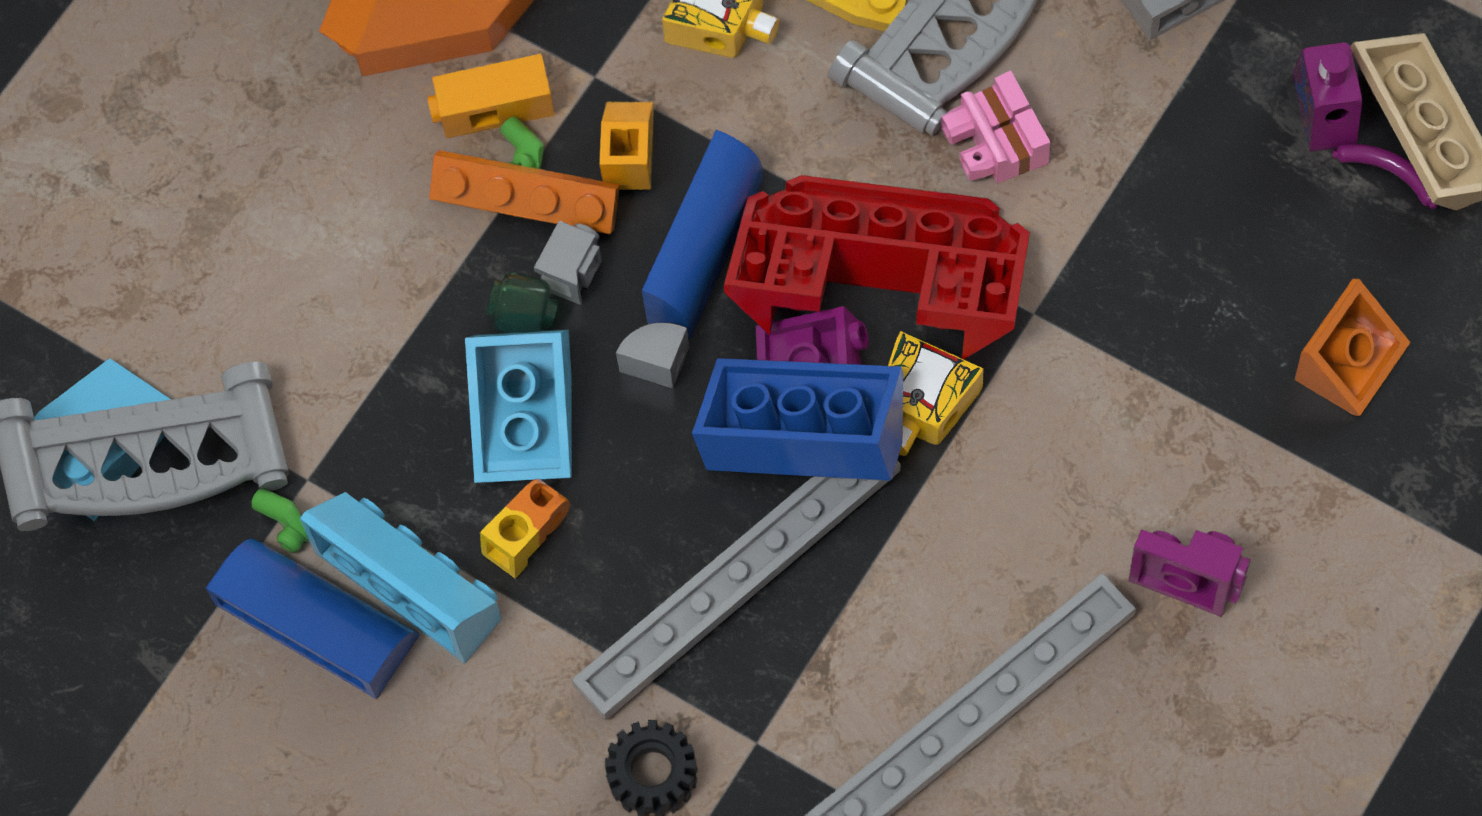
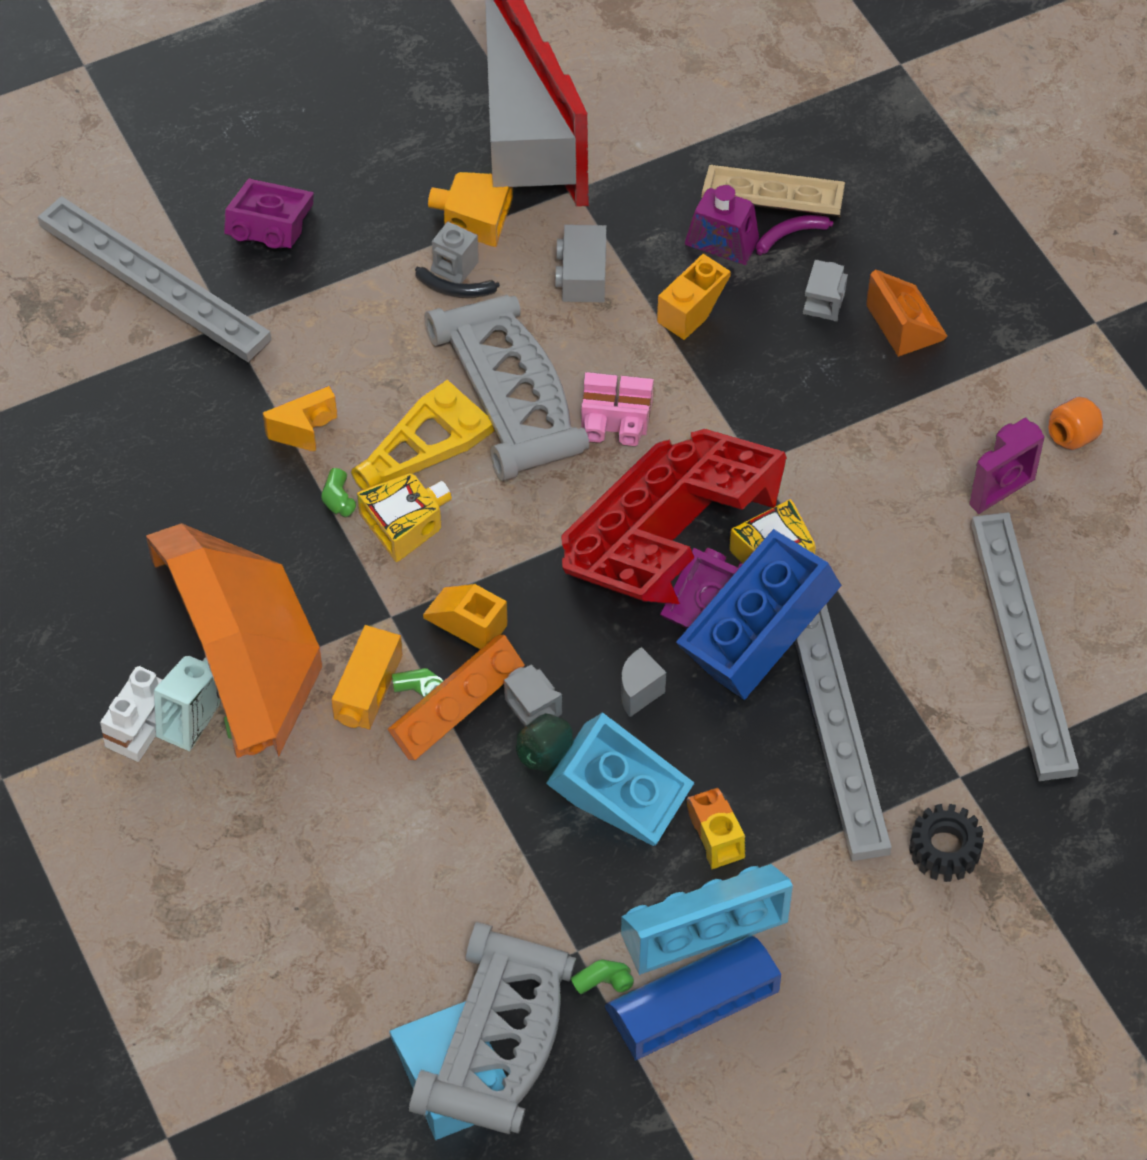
camera: 65 degrees left, 10 degrees down
(702, 233) = (571, 608): blue brick -> none
(1205, 117) = (691, 296): none -> light orange slope
(1320, 617) = (1075, 423): none -> orange head
(1322, 248) = (825, 290): none -> light grey window

